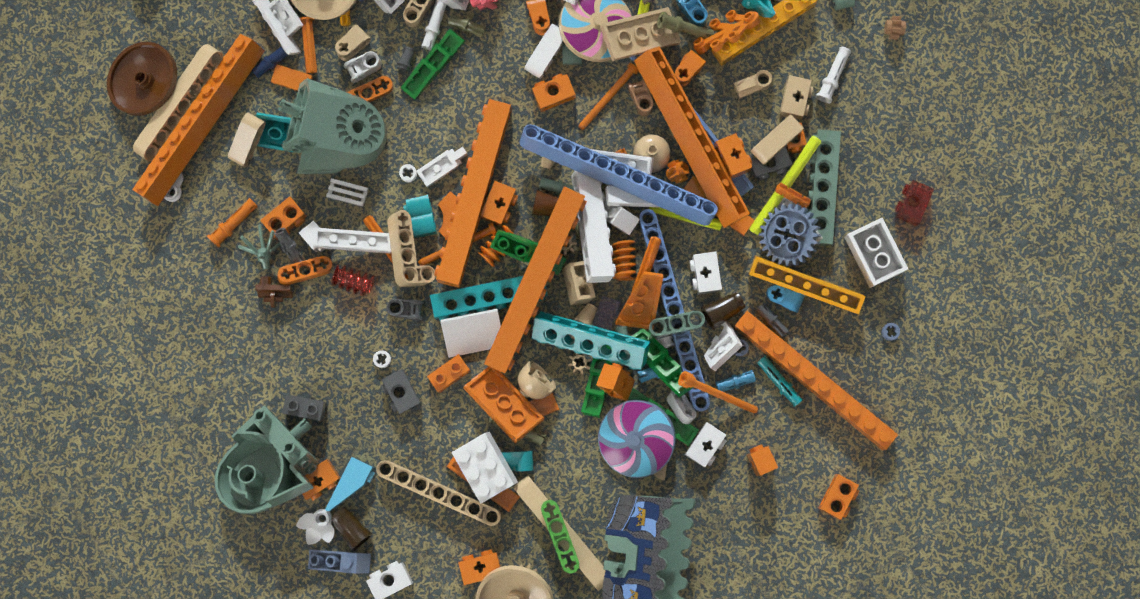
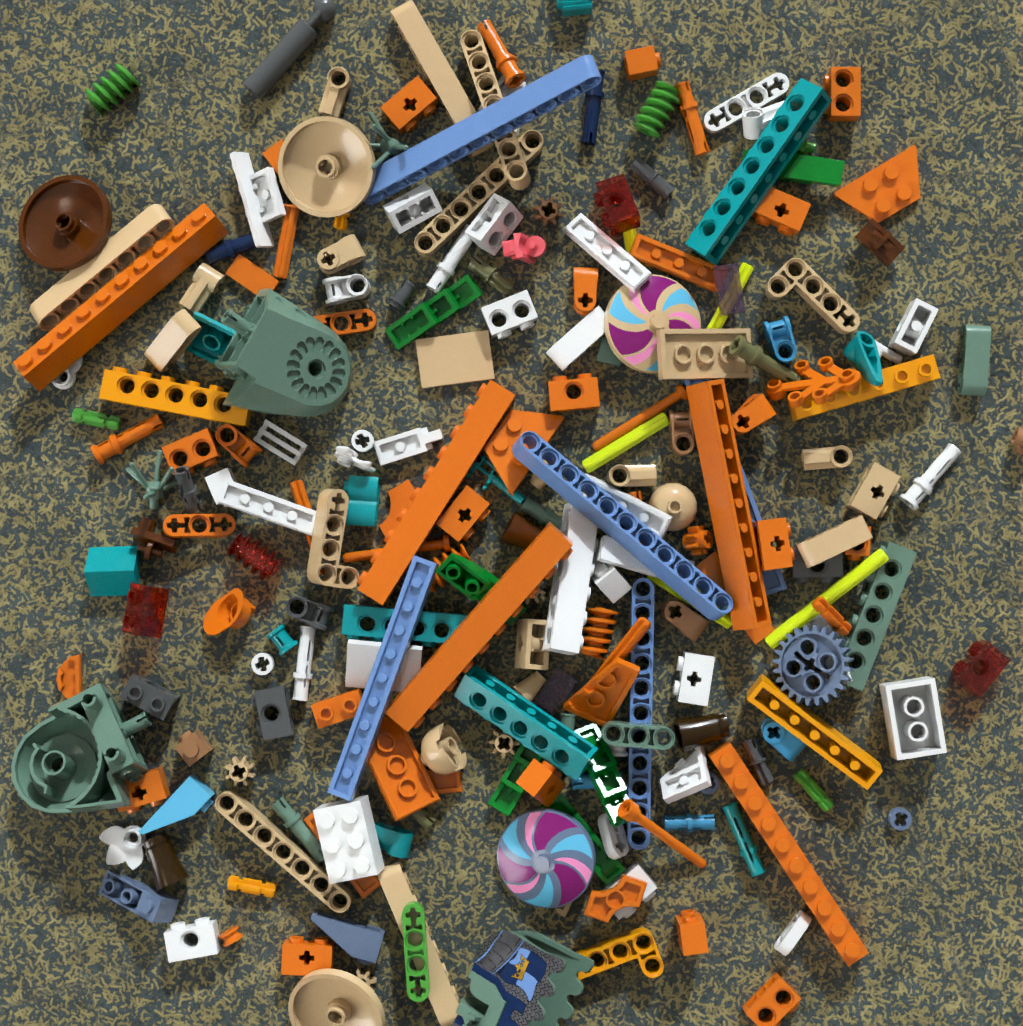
camera: 15 degrees right, 5 degrees up
(205, 216) = (96, 419): none -> bright green axle
(211, 182) = (113, 390): none -> light orange brick
(239, 411) = (70, 676): none -> orange tile
(250, 324) = (112, 570): none -> teal slope
(257, 94) = (203, 286): none -> tan piece
(282, 344) = (145, 610): none -> clear red brick
(319, 204) = (239, 445): none -> orange piece
(345, 327) = (228, 612): none -> orange piece
(347, 435) = (193, 746): none -> medium nougat brick
(383, 443) = (238, 778): none -> tan gear
(391, 336) = (282, 639): none -> teal bush
(400, 187) = (348, 457): none -> white plate
(414, 357) = (304, 663): none -> white pin
(417, 570) = (230, 936): none -> orange bush
(422, 528) = (251, 886): none -> light orange axle
(445, 474) = (298, 828): none -> sand green pin
(458, 94) = (455, 359): none -> tan tile
(474, 338) = (383, 678): none -> medium blue plate
(485, 44) = (506, 308): none -> white brick
(511, 147) = (513, 426): none -> orange wing
(514, 172) = (495, 480): none -> teal piece
(514, 543) = (356, 938): none -> sand blue slope
(603, 116) = (625, 442): none -> neon yellow axle
(616, 138) = (633, 476): none -> tan piece
(688, 233) = (687, 622): none -> medium nougat piece
(704, 444) = (605, 903): none -> orange tile
(722, 489) = (632, 951): none -> light orange beam
(820, 329) = (813, 790): none -> bright green axle
(838, 439) = (792, 933): none -> white beam

